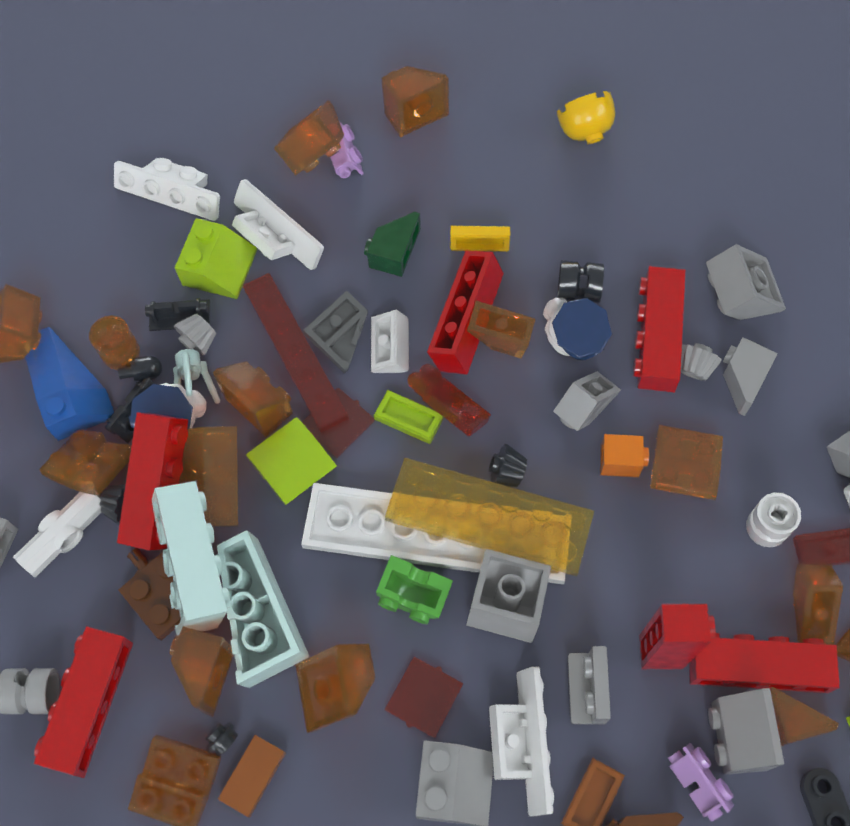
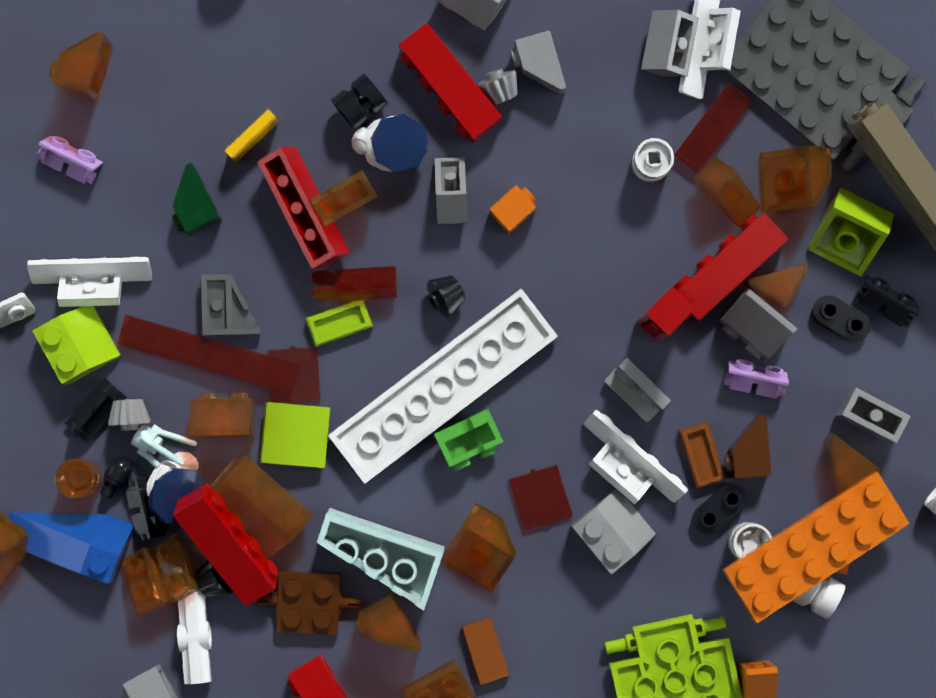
camera: 50 degrees left, 20 degrees up
(190, 557) = (311, 568): light aqua wedge -> none
(221, 738) = (444, 650): black plate -> none
(311, 139) = (40, 178): clear orange slope -> none
(389, 343) = (269, 280): white slope -> none
(489, 516) = (468, 342): clear yellow plate -> none
(509, 596) = (533, 382): light grey slope -> none
(687, 462) = (559, 171): clear orange slope -> none

